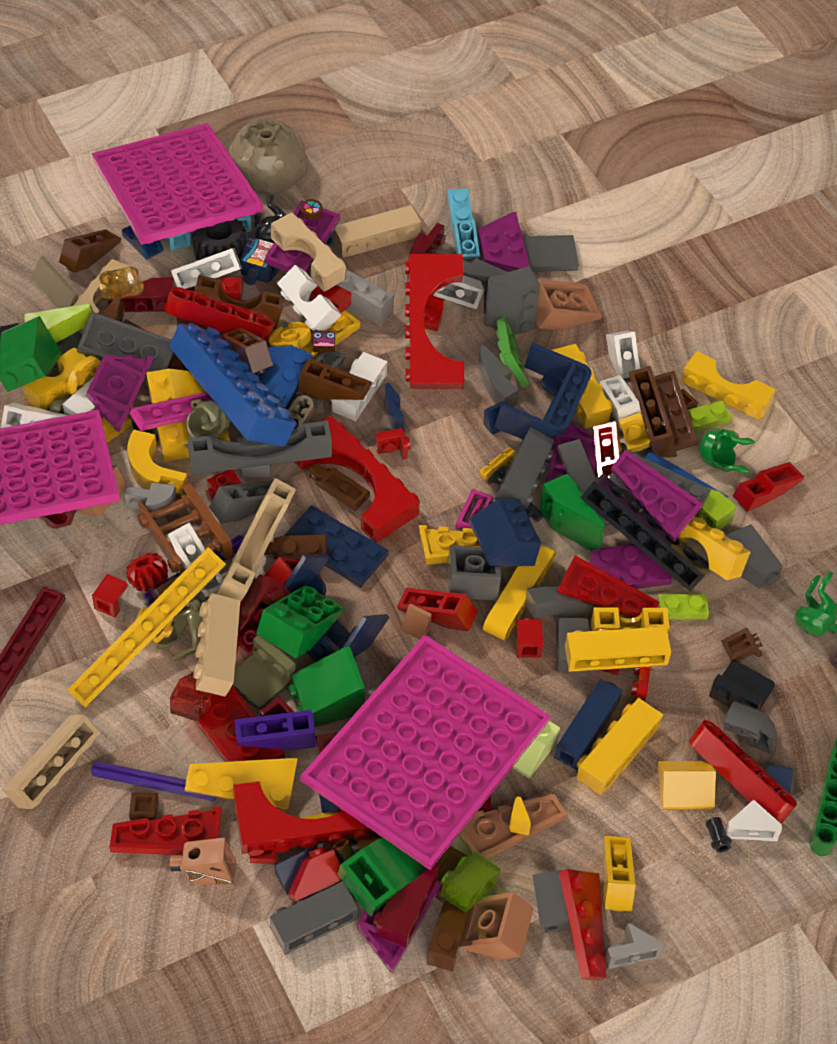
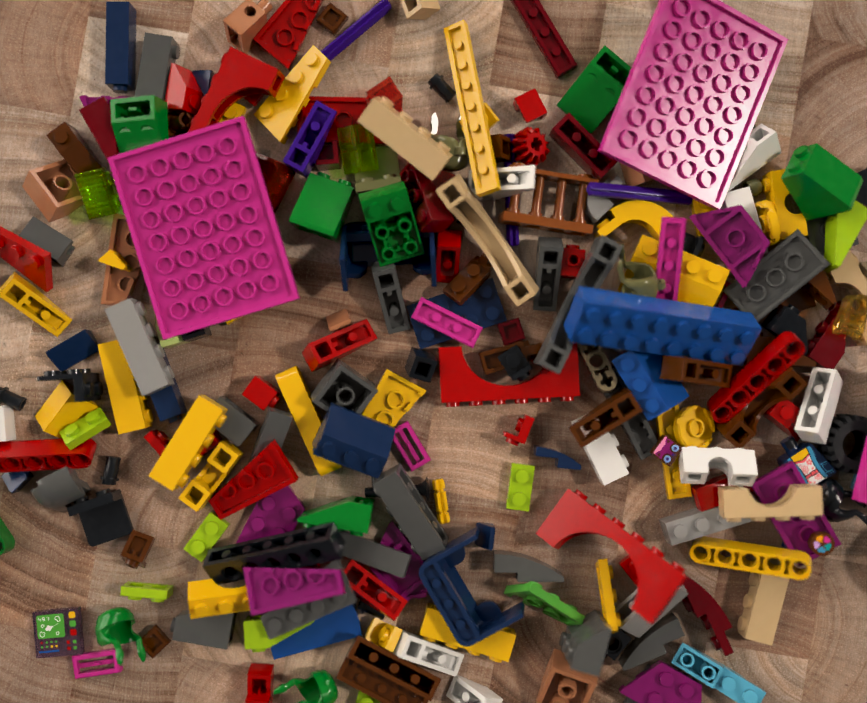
camera: 135 degrees right, 35 degrees up
(55, 554) = (596, 89): none -> green slope
(118, 534) = (581, 147): none -> dark red brick
(133, 475) = (637, 193): none -> dark purple axle
(141, 679) = (441, 87): none -> black pin
(158, 321) = (787, 319): none -> black slope
(254, 694) = (357, 149): none -> clear neon green panel
(314, 967) = (120, 47): none -> dark blue brick
(317, 498) = (511, 331): none -> dark red tile
(343, 470) = (515, 363): none -> black bracket
(350, 539) = (446, 322): none -> dark pink tile
(358, 243) = (760, 552): none -> yellow beam
(362, 597) = (390, 297): none -> dark grey slope
(401, 535) = (421, 364): none -> black brick
(437, 421) = (520, 486): none -> lime plate
(466, 315) = (607, 595): none -> yellow plate
(573, 738) = (140, 346): none -> light grey brick
(628, 814) = (73, 350): none -> dark blue slope
(649, 784) = (86, 384): none -> black bracket
(683, 748) = (85, 428): none -> lime plate
(704, 708) = (111, 470): none -> black pin
(766, 616) = (141, 590): none -> lime plate
(798, 588) = (155, 641): none -> reddish brown tile

